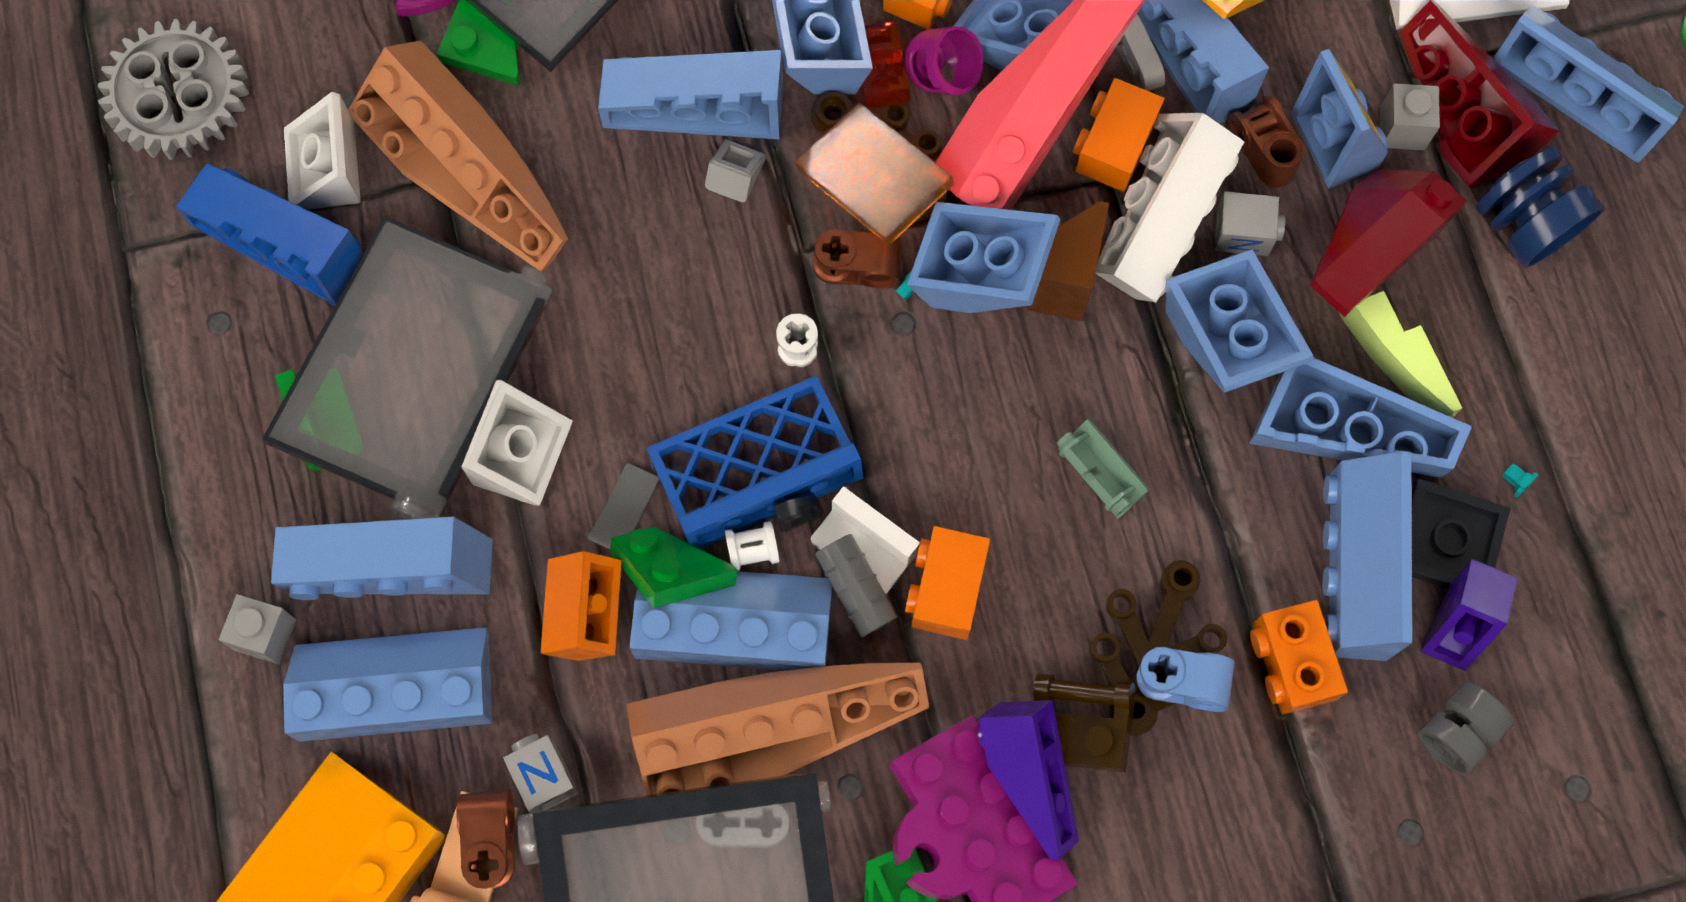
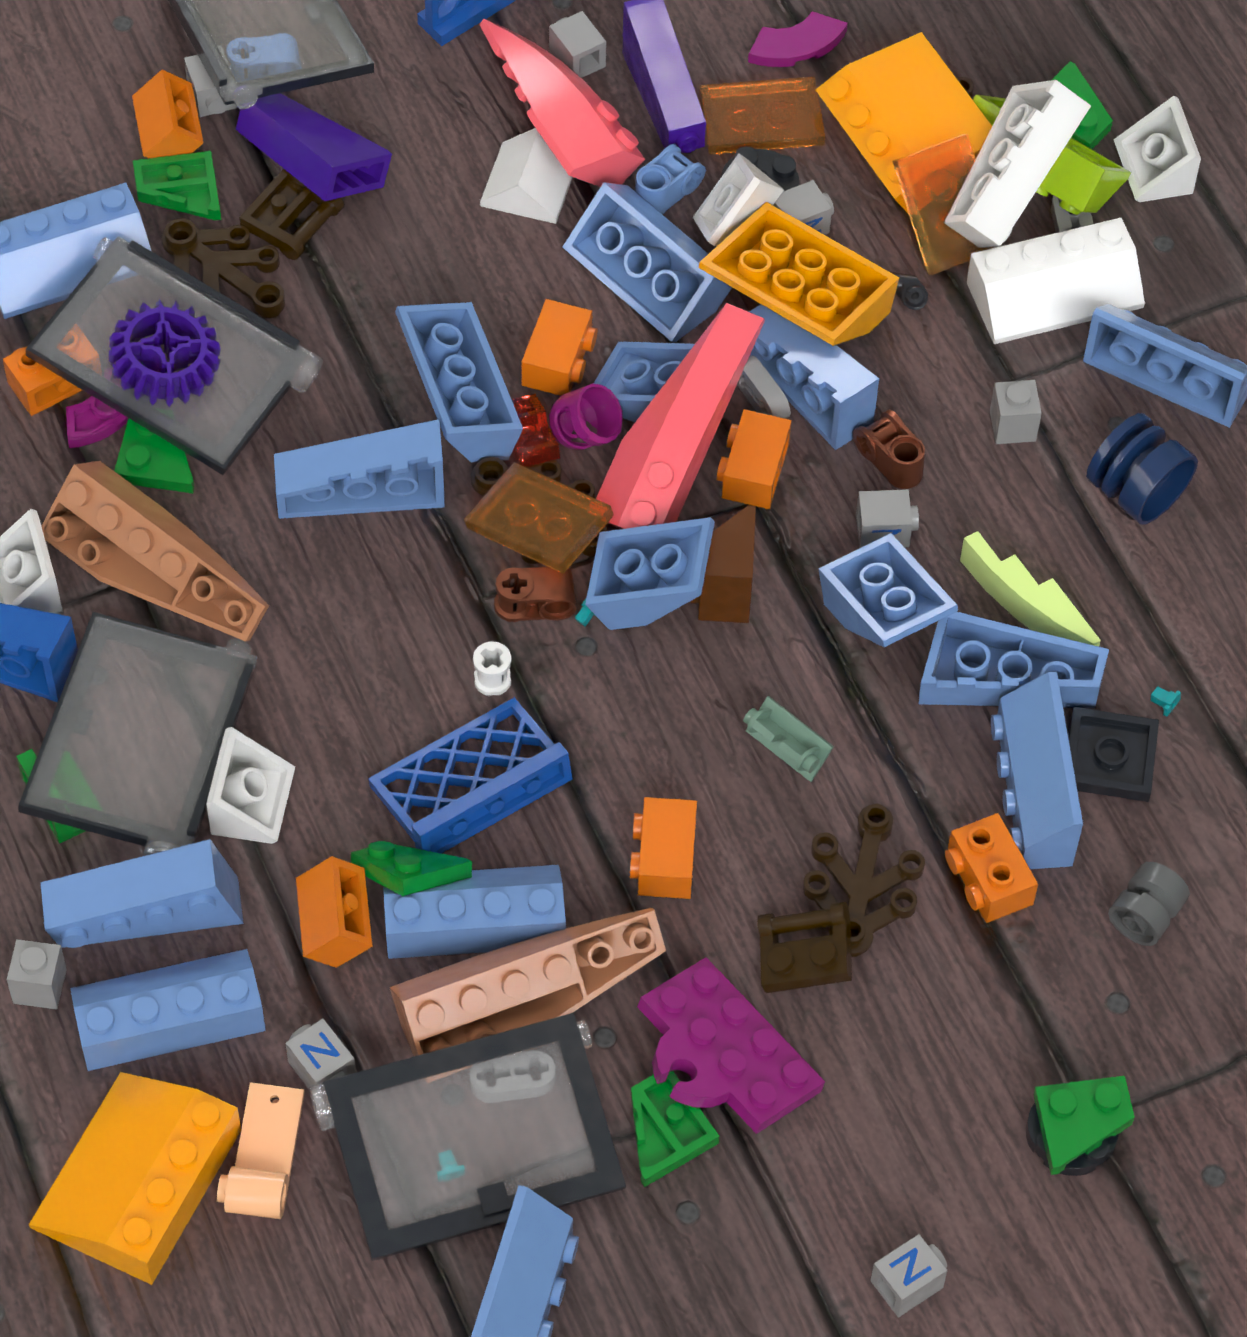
camera: 10 degrees left, 15 degrees down
(486, 830) = (281, 1107): copper piece -> none
(624, 505) = (357, 827): dark grey sticker -> none
(734, 170) = (407, 538): light grey slope -> none
(752, 546) = (481, 843): white bush -> none
(797, 512) = (516, 812): black tile -> none
(856, 585) = (582, 862): dark grey axle -> none
(885, 544) = (584, 827): white panel -> none
(1029, 765) = (763, 980): dark purple slope -> none
(1167, 203) = (809, 507): white wedge -> none
(1192, 680) = (895, 889): medium blue piece -> none
(1337, 124) = (950, 423): medium blue slope -> none
(1380, 230) = (1007, 506): dark red wedge -> none
(1470, 615) = (1135, 809): dark purple slope -> none
(1483, 112) = (1075, 395): dark red wedge -> none

